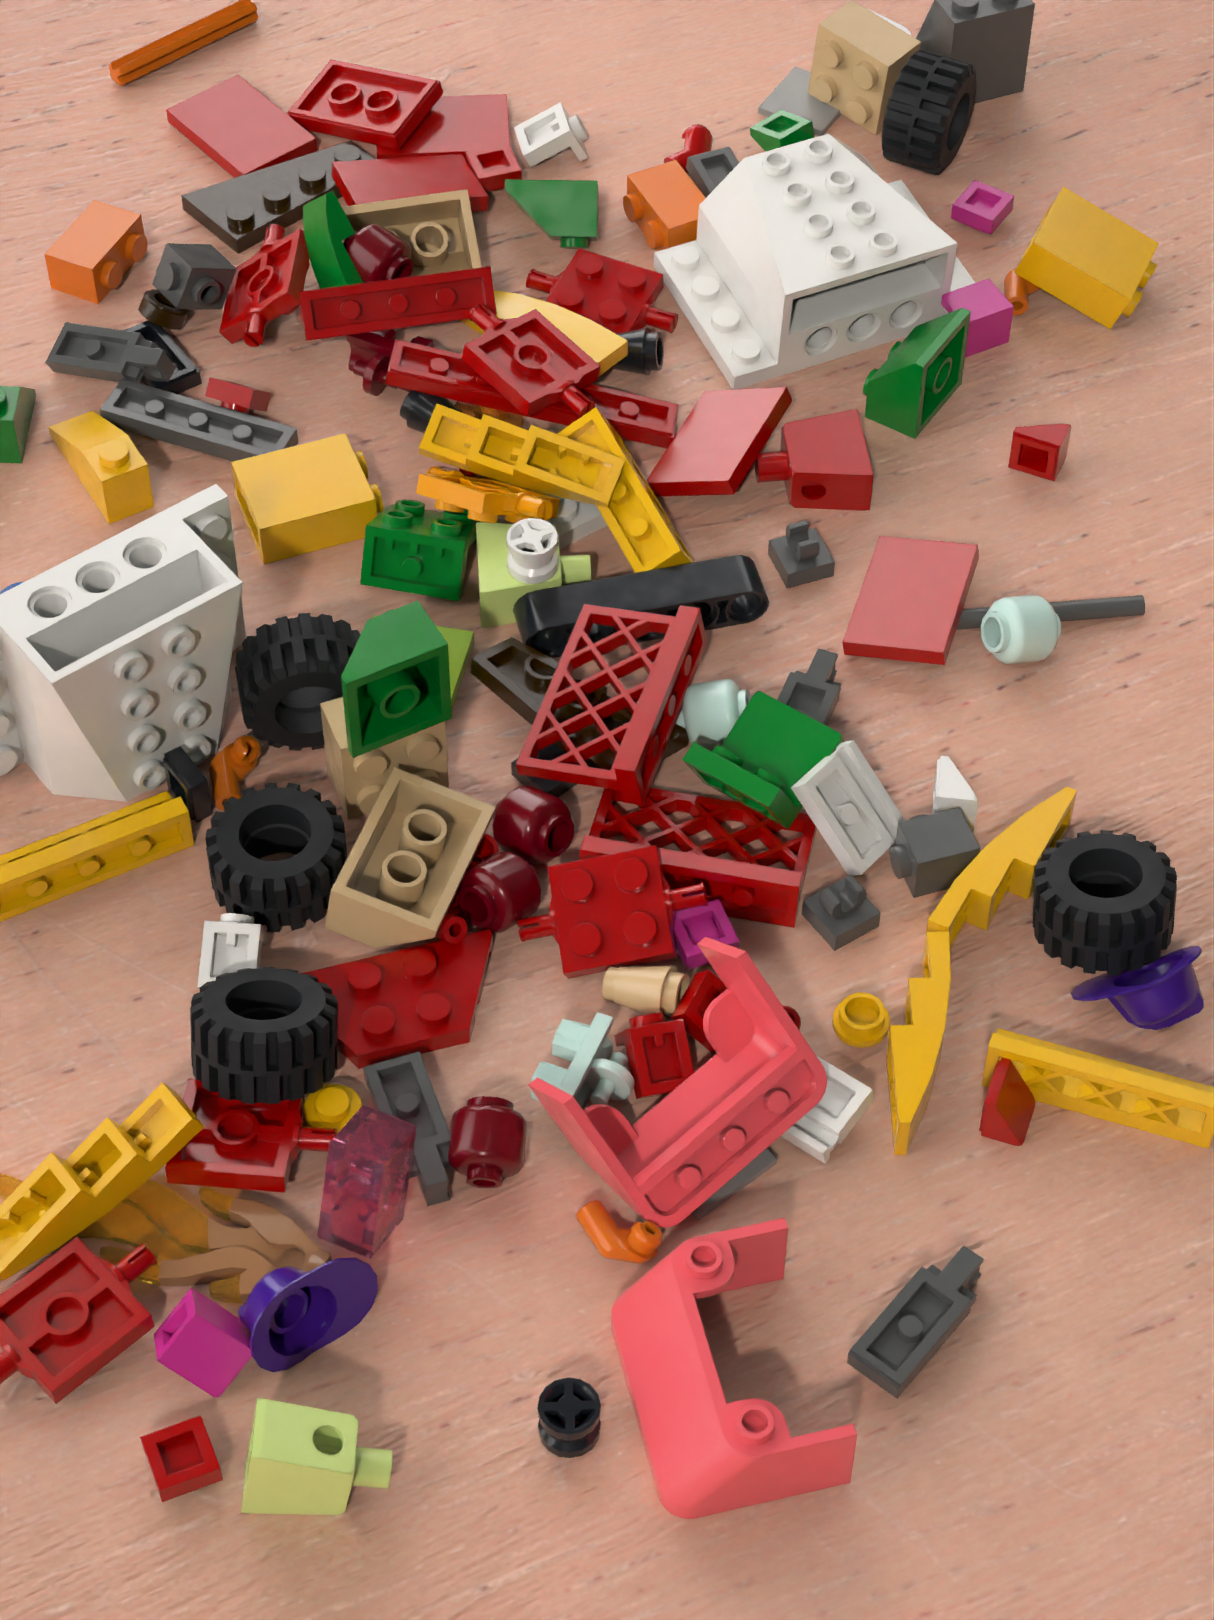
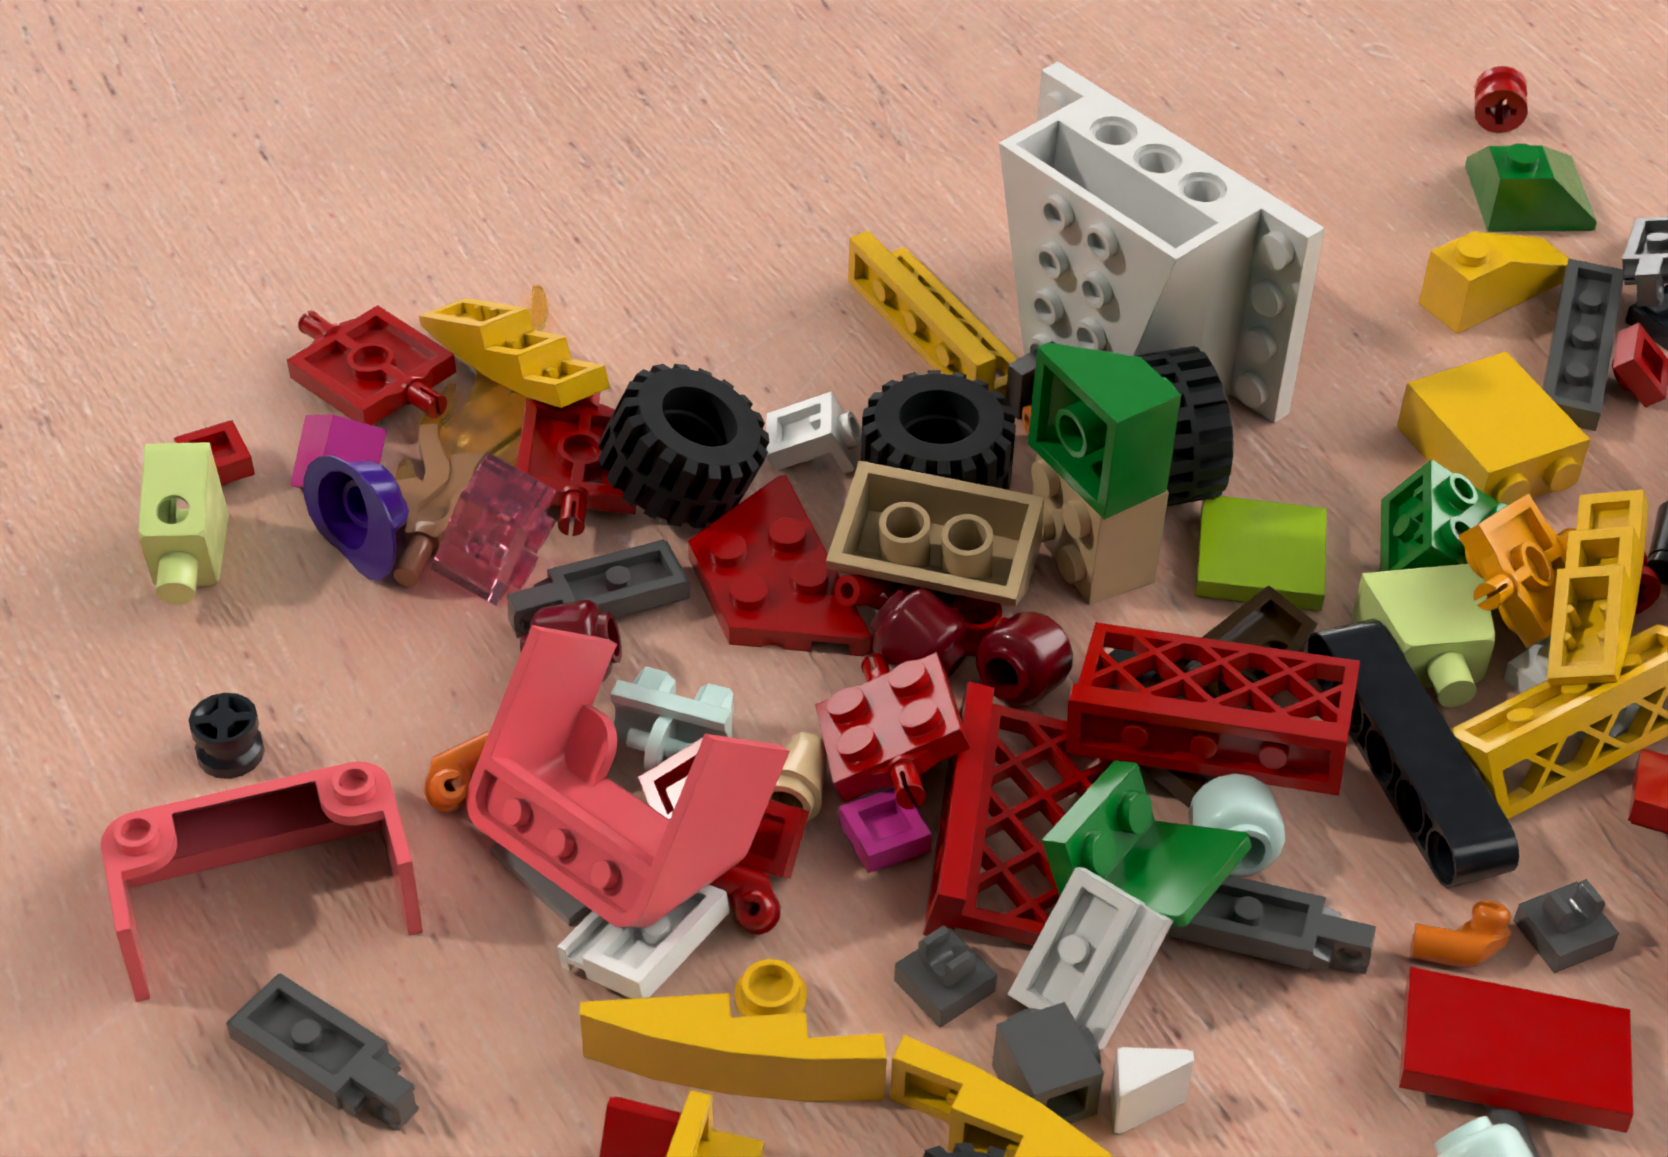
camera: 85 degrees right, 5 degrees down
(331, 1106) = (618, 529): yellow plate -> none
(532, 550) = (1427, 600): white wheel -> none
(815, 608) = (1469, 943): none -> orange arm

